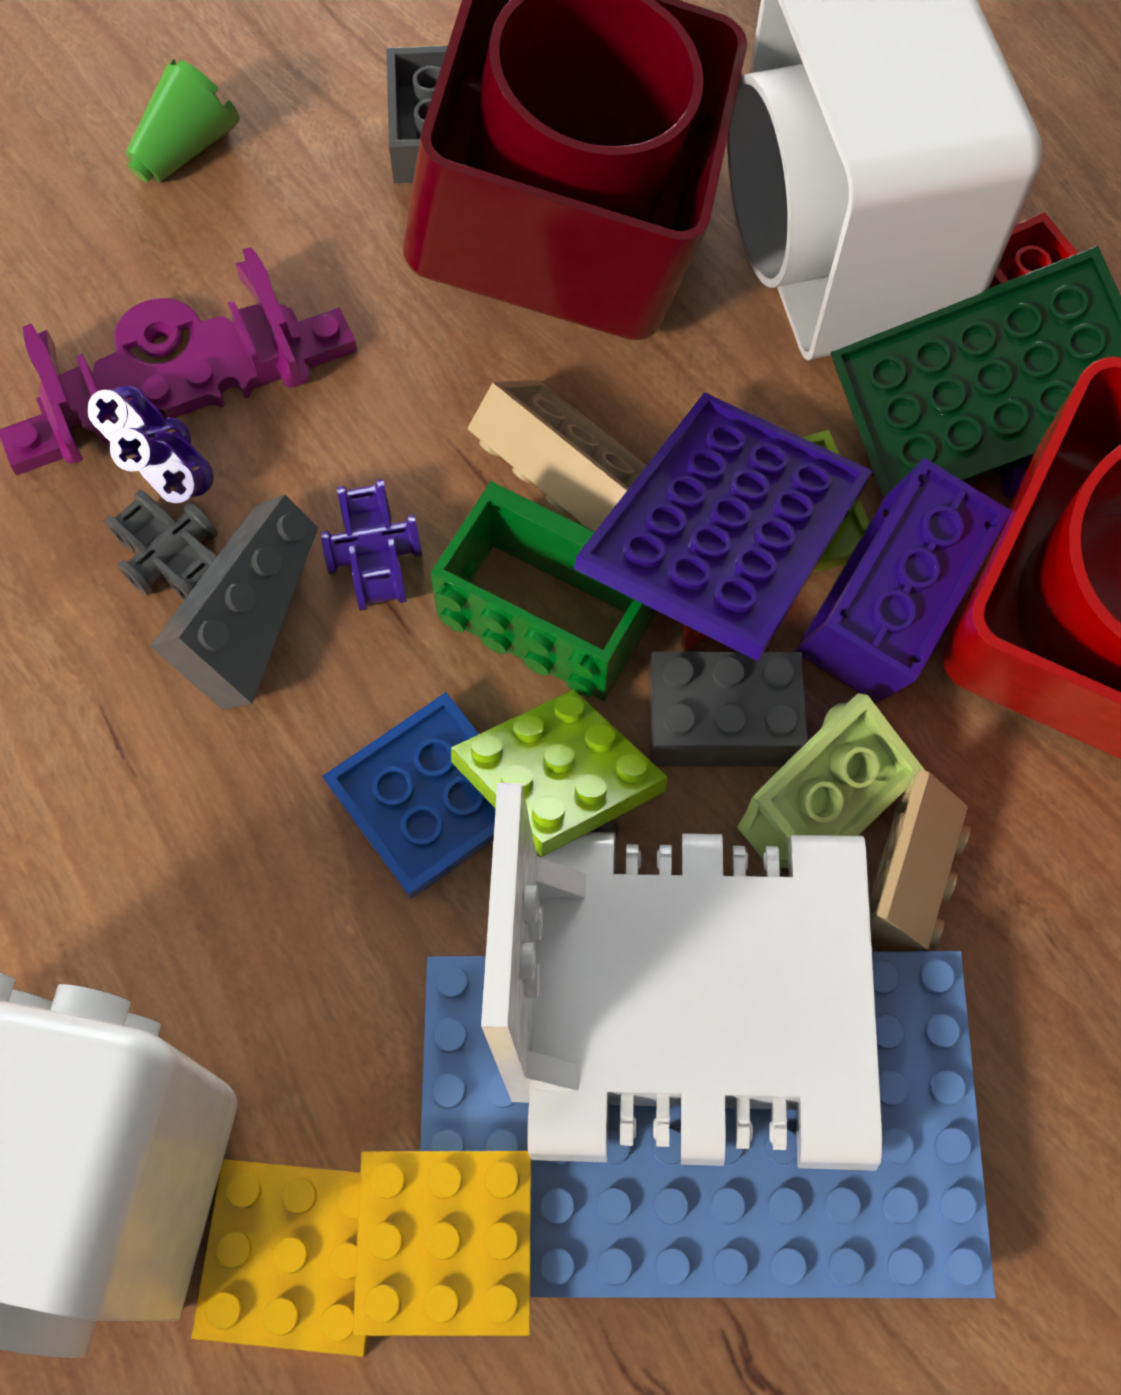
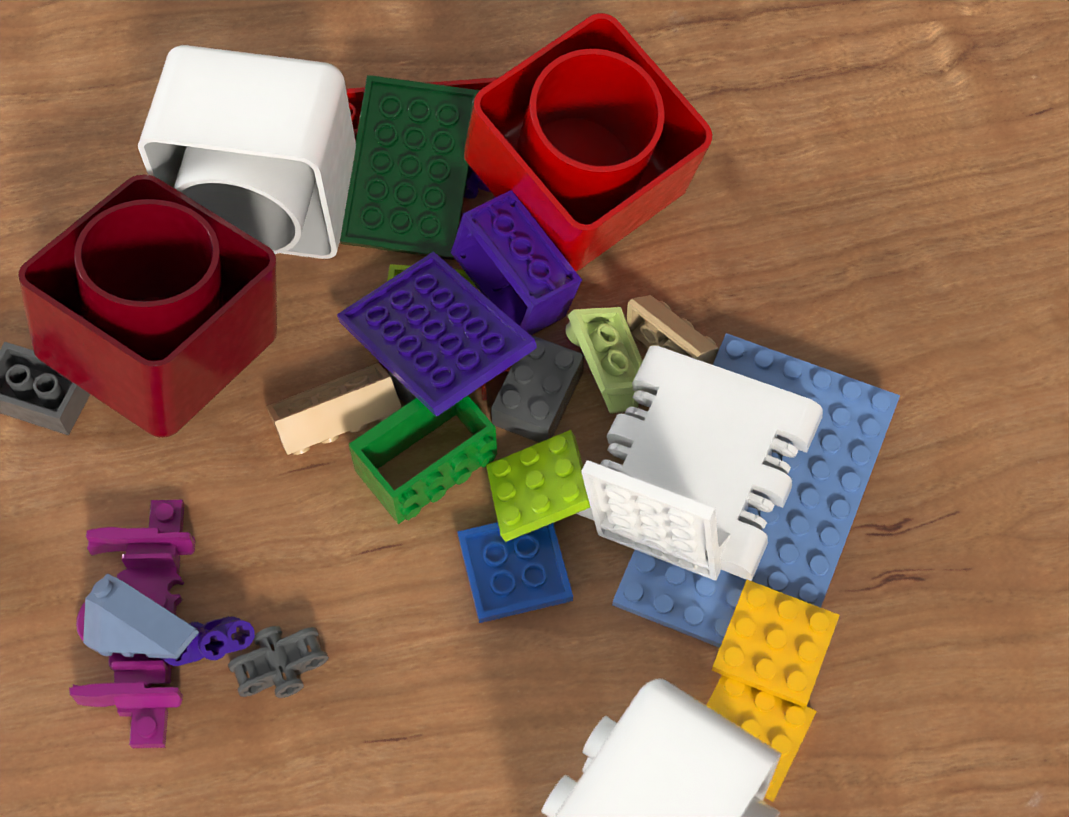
camera: 65 degrees left, 5 degrees down
(137, 347) = (130, 623): none -> sand blue wedge
(239, 604) = (344, 623): dark grey wedge -> none
(371, 544) = (336, 540): dark purple axle -> none

